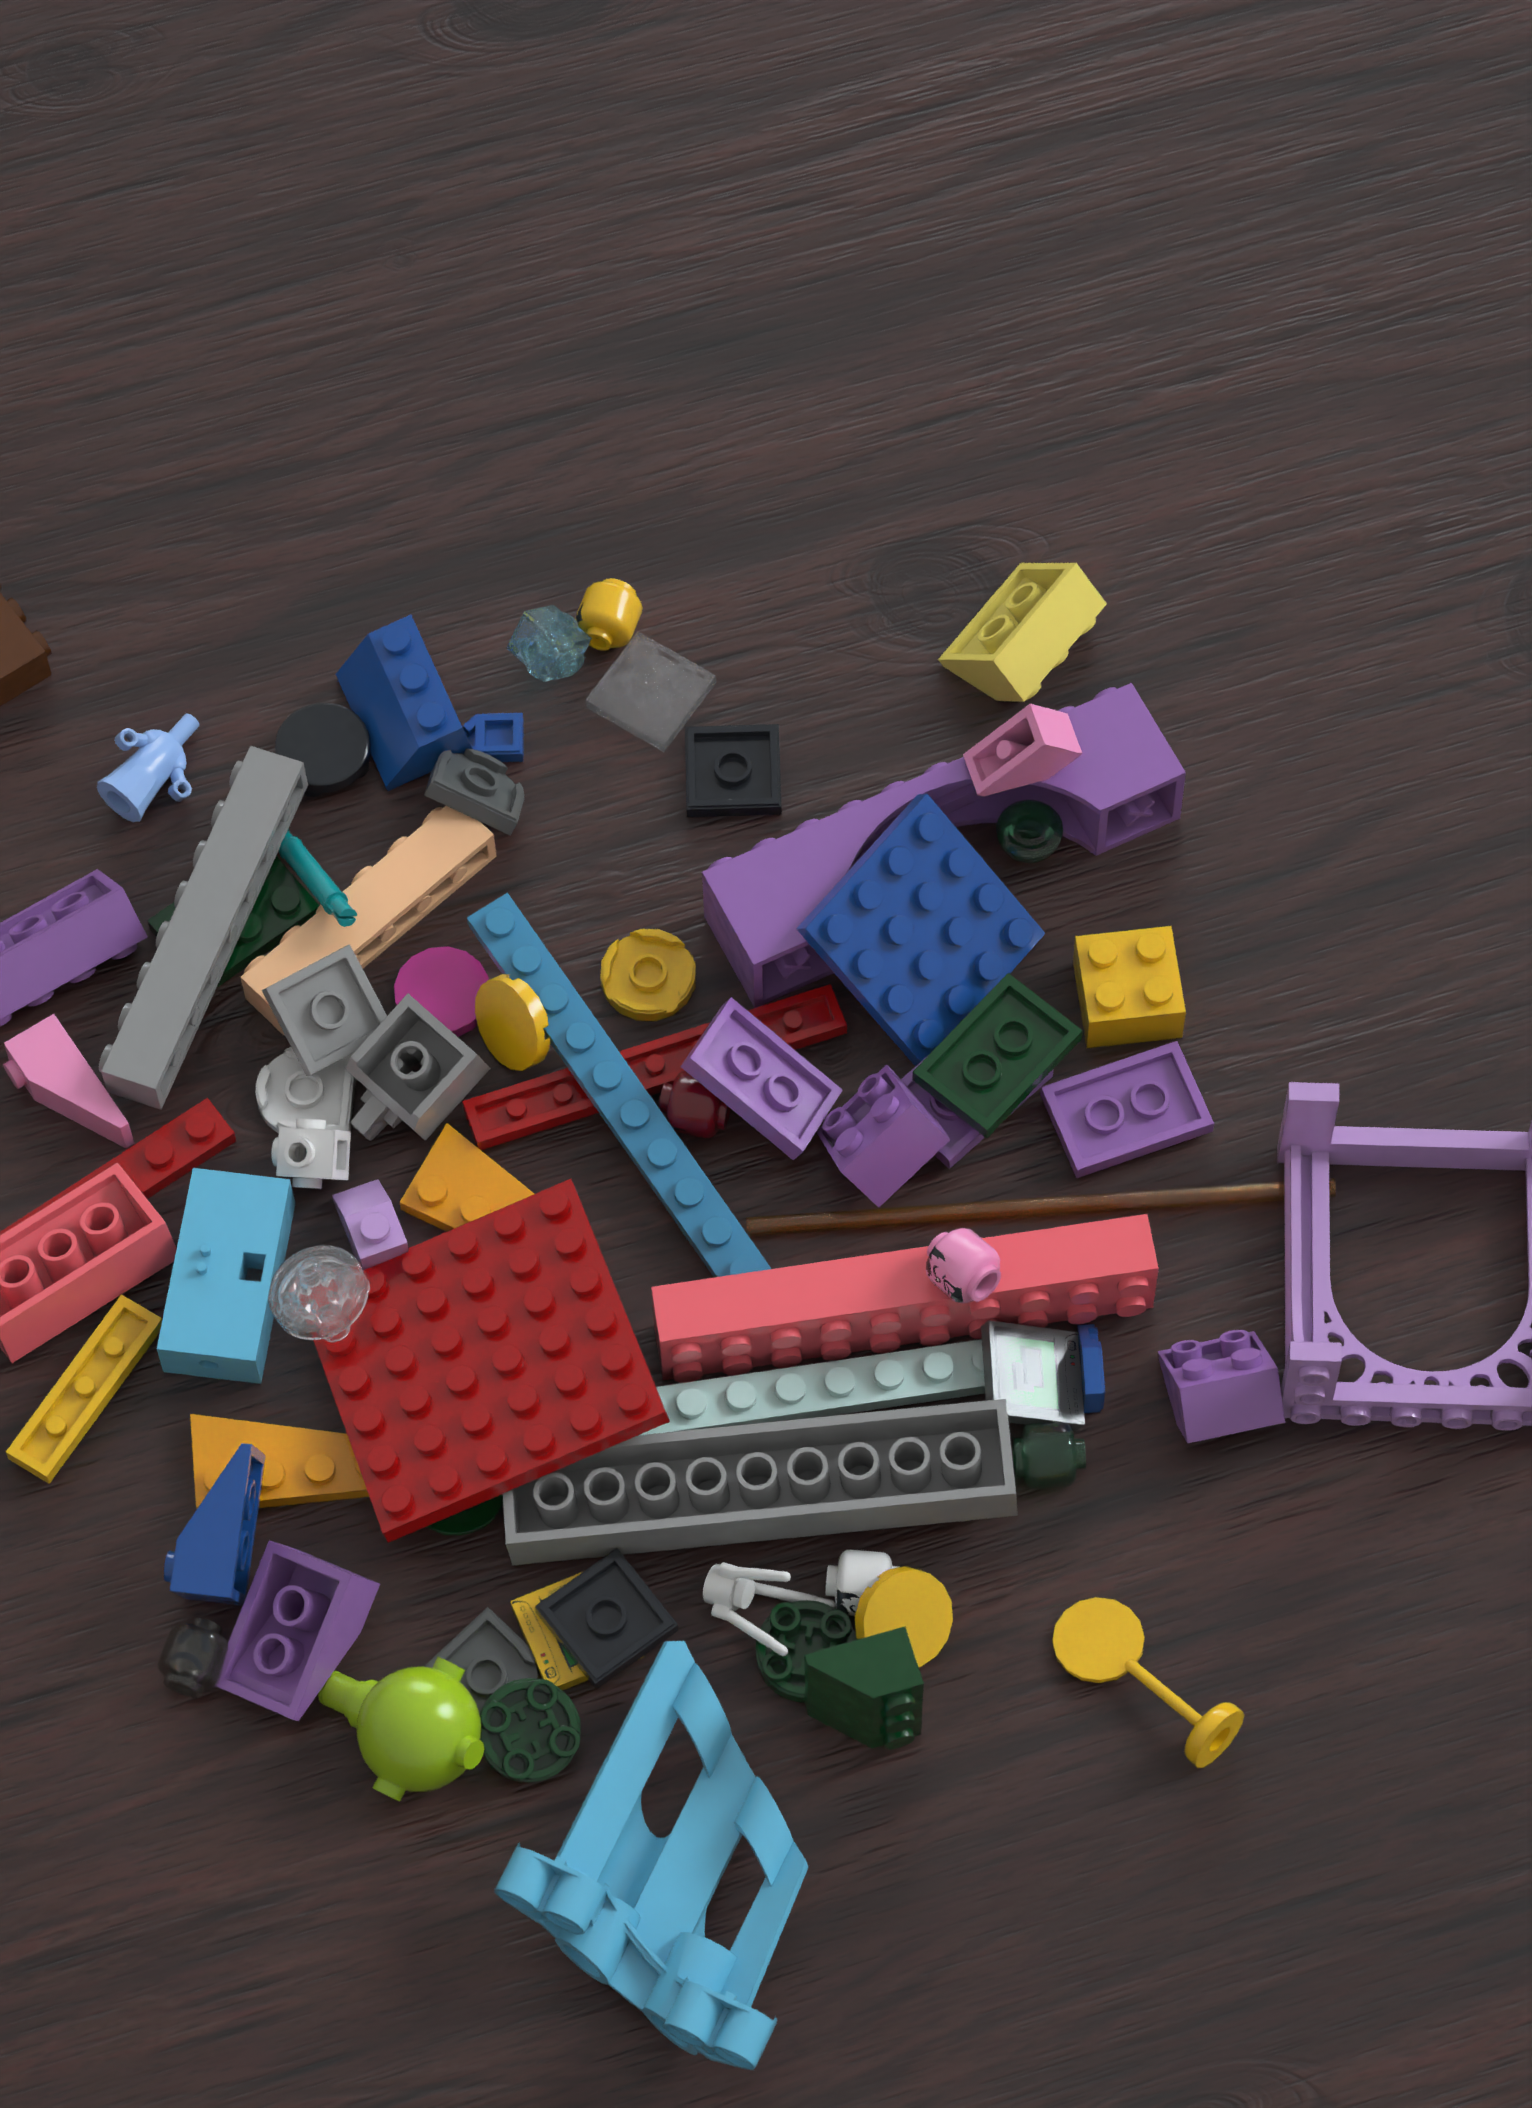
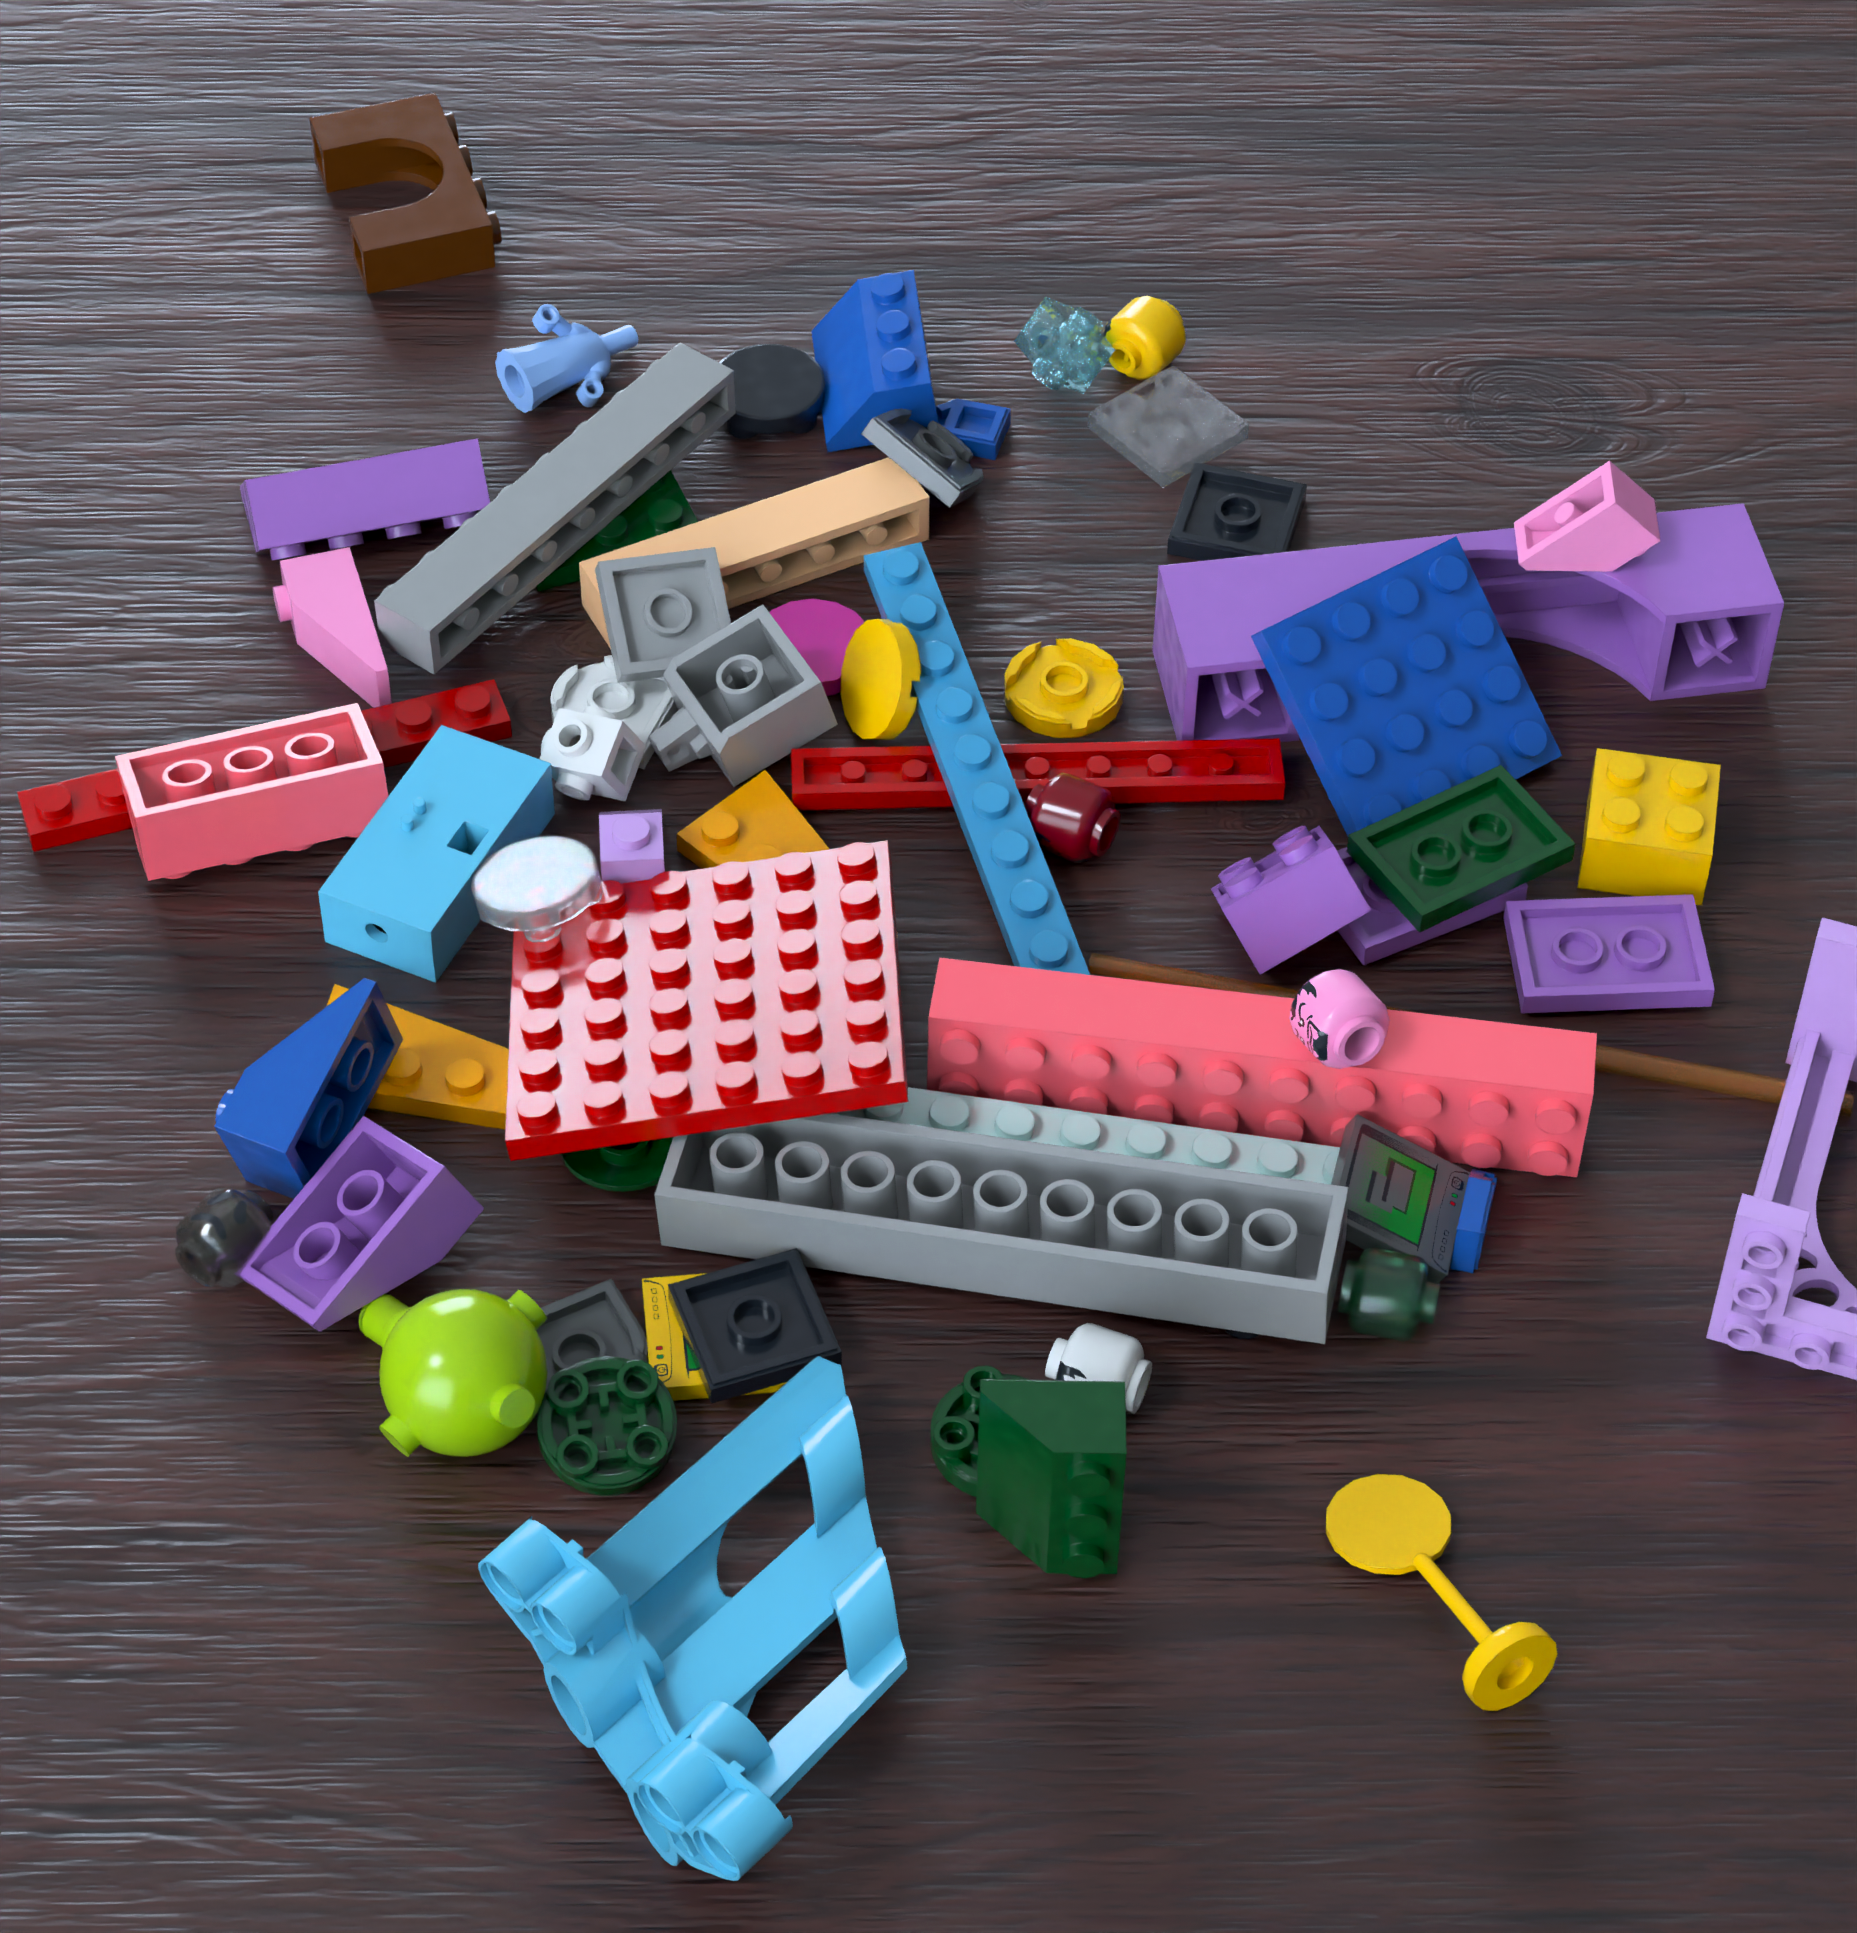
camera: 15 degrees right, 15 degrees down
(84, 1389) = (216, 929): yellow plate -> none
(317, 880) = (705, 491): teal piece -> none
(734, 1588) = (924, 1334): white plant -> none
(761, 1078) = (1158, 800): medium lavender plate -> none
(909, 1600) = (1161, 1416): yellow tile -> none
(1024, 630) = (1651, 445): light yellow slope -> none
(1029, 831) = (1573, 646): clear green brick -> none
(1222, 1385) = (1641, 1273): medium lavender slope -> none

